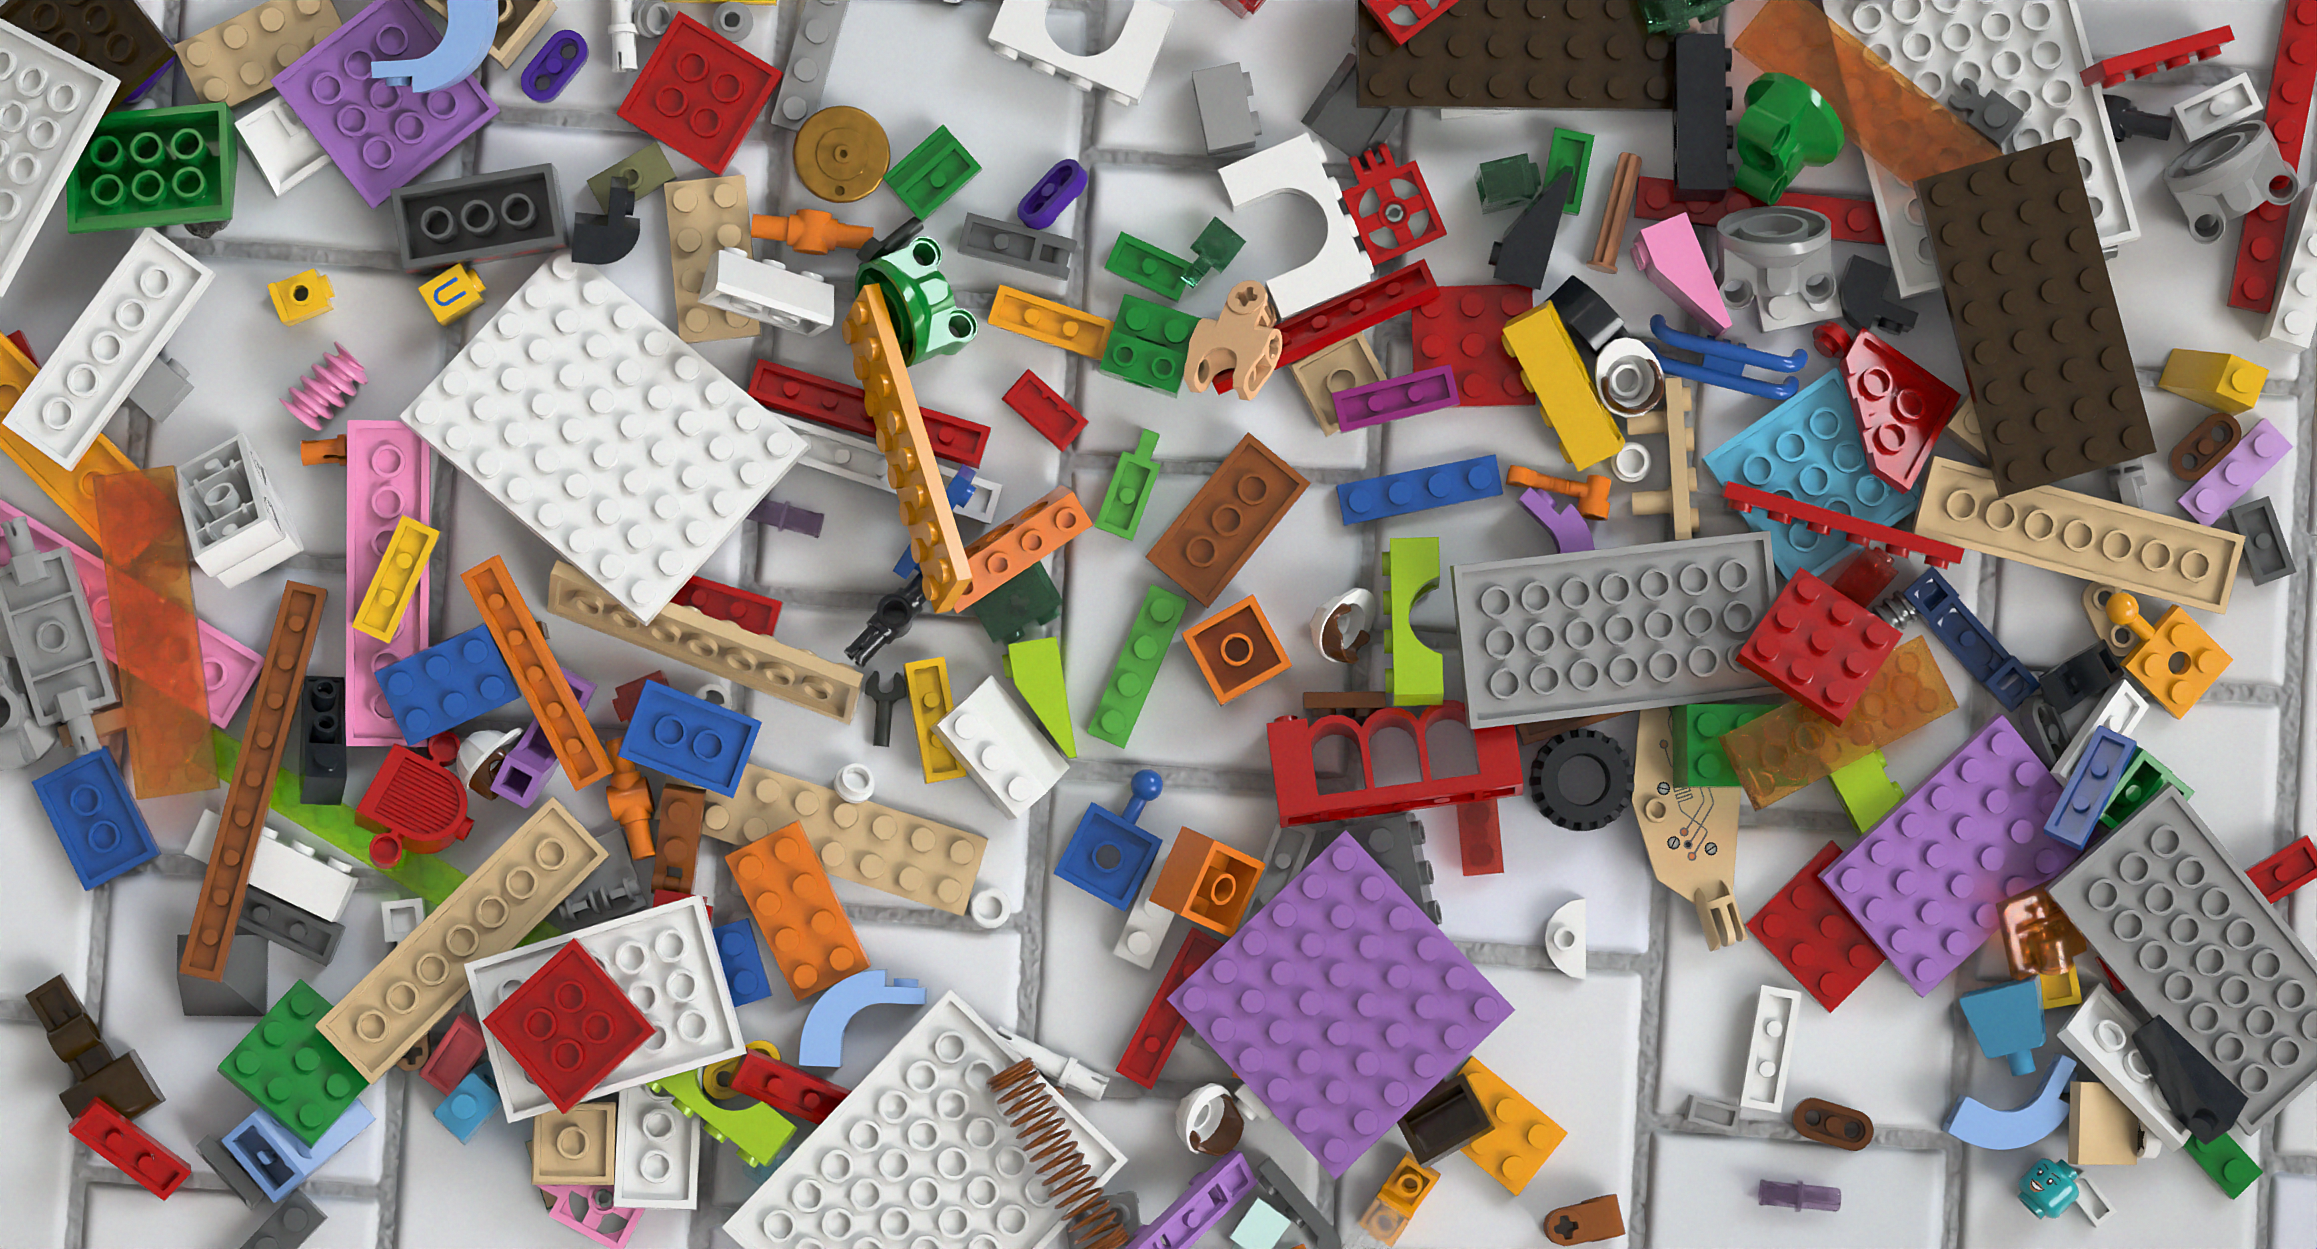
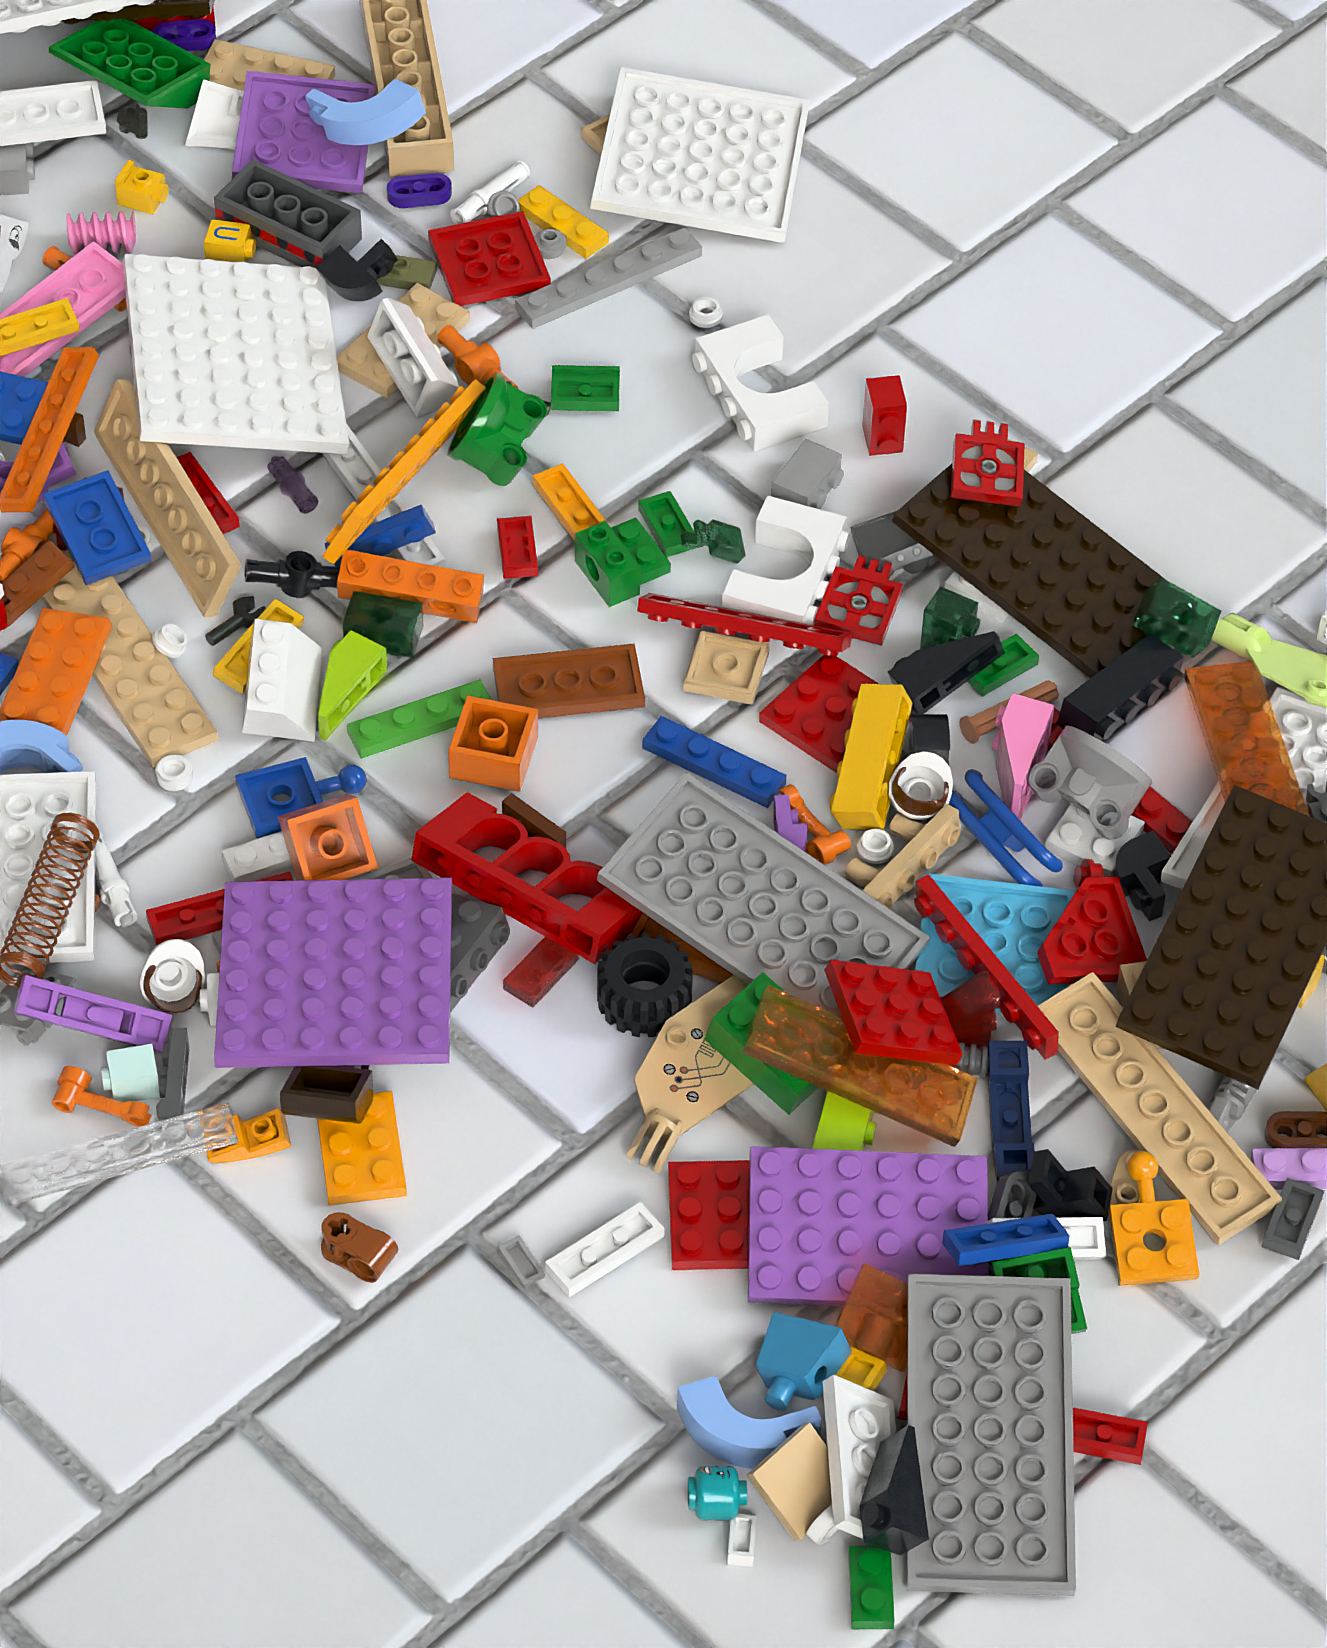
camera: 40 degrees right, 35 degrees down
(841, 154) = (539, 337): pearl gold wheel -> none
(845, 408) = (384, 443): red plate -> none
(1015, 246) = (595, 457): dark grey plate -> none
(1052, 194) = (662, 447): dark purple plate -> none
(1130, 489) = (526, 621): bright green plate -> none
(1238, 340) = (677, 584): light nougat piece -> none
(1343, 625) = (581, 784): white piece -> none
(1395, 398) = (750, 686): magenta plate -> none
(1416, 669) = (599, 826): lime arch -> none
(1567, 938) = (535, 1077): white plate -> none
(1782, 133) = (1167, 724): green piece -> none
(1799, 1196) = (526, 1357): clear purple axle -> none
(1831, 1124) = (602, 1333): reddish brown plate -> none

